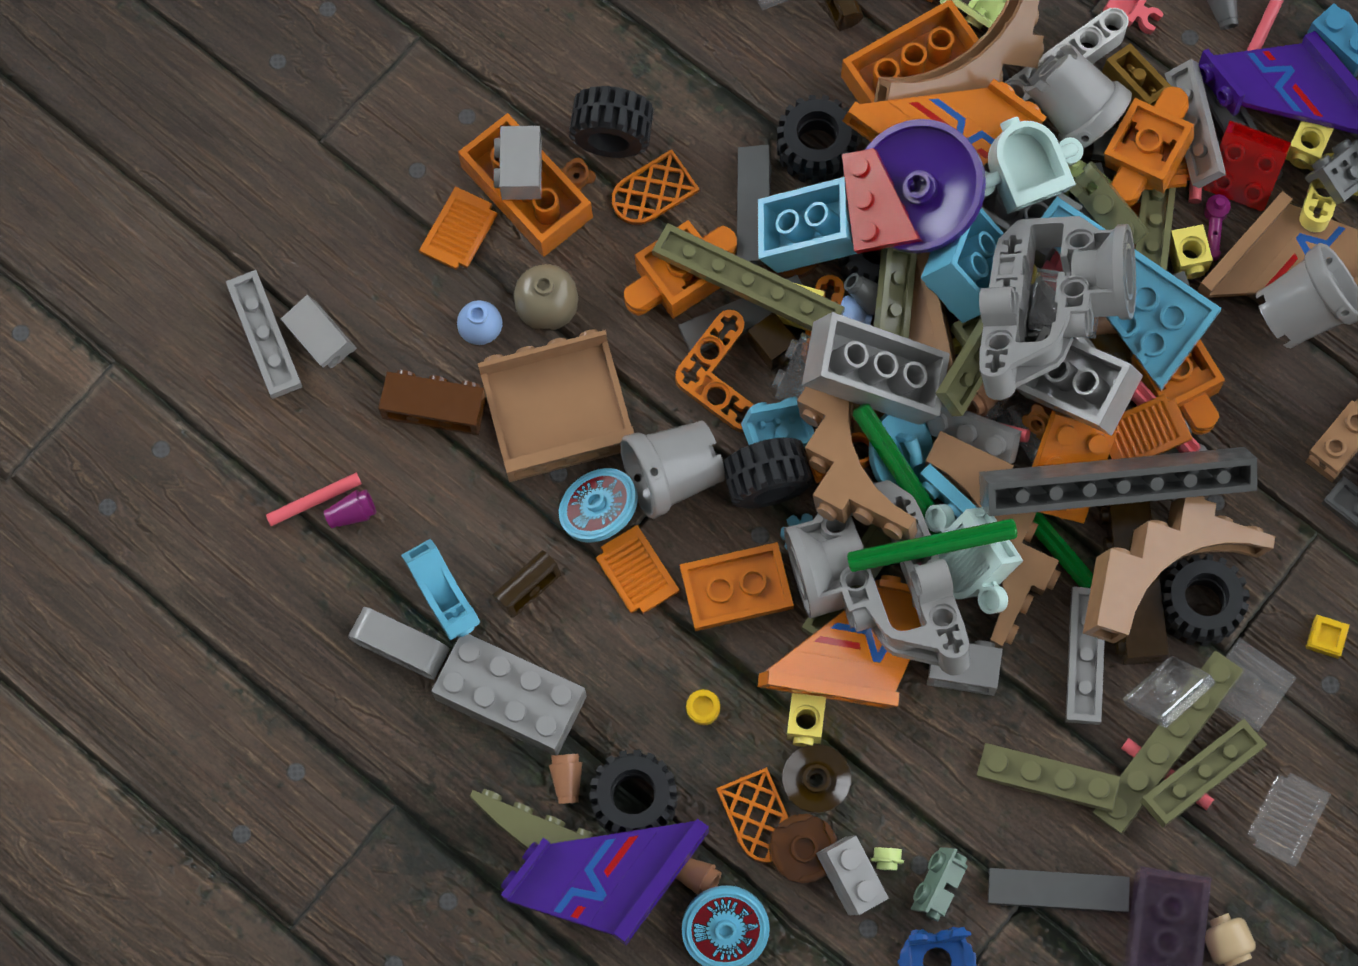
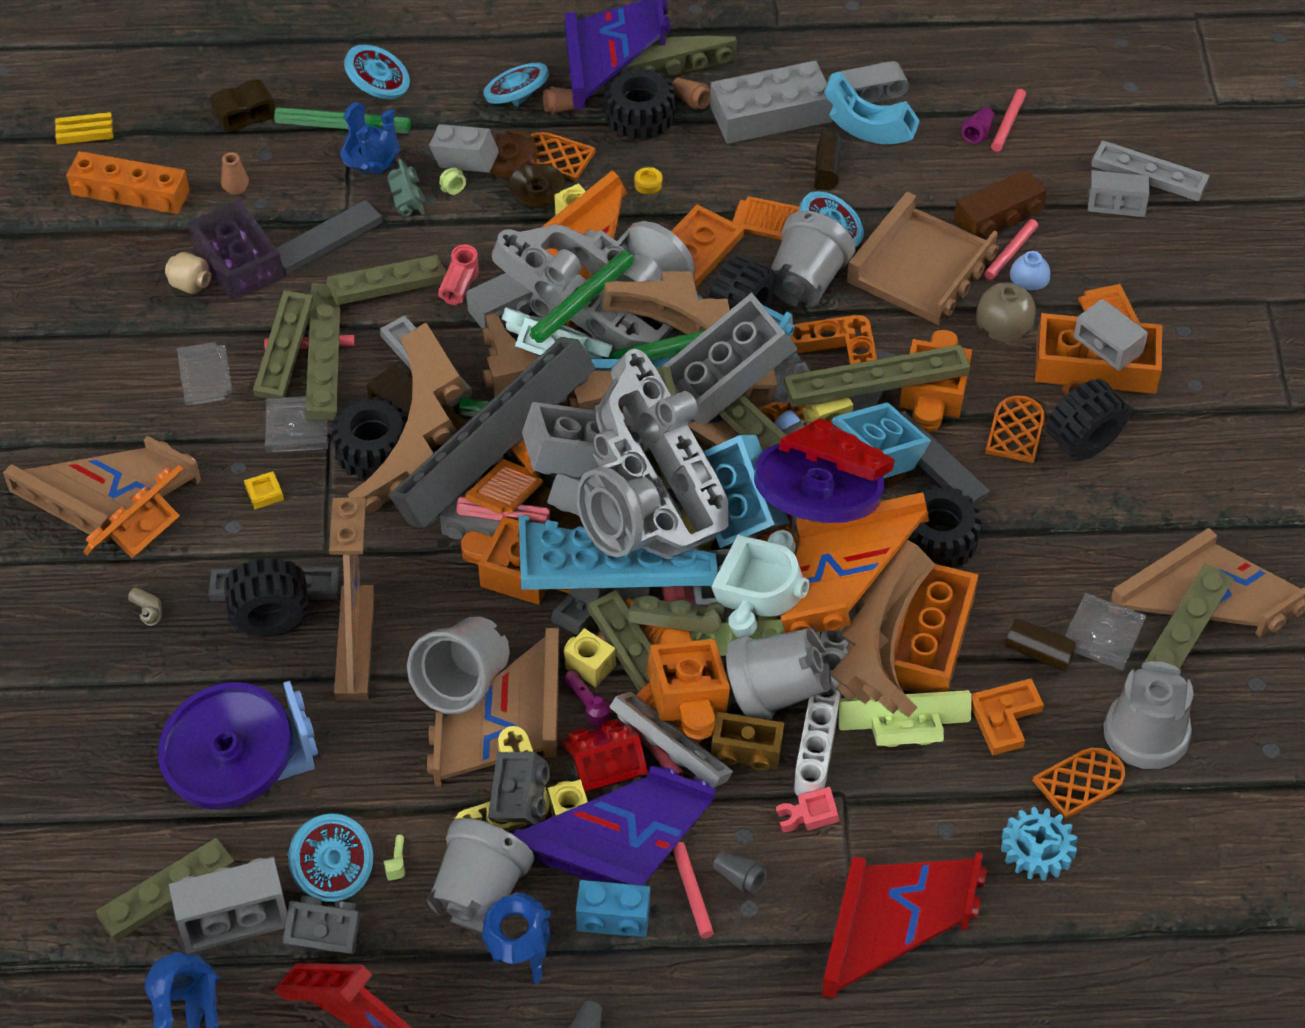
camera: 135 degrees right, 20 degrees down
(464, 360) = (1010, 250): none -> coral bar
(980, 727) = (459, 275): none -> coral piece
(1169, 691) = (347, 365): clear plate -> none

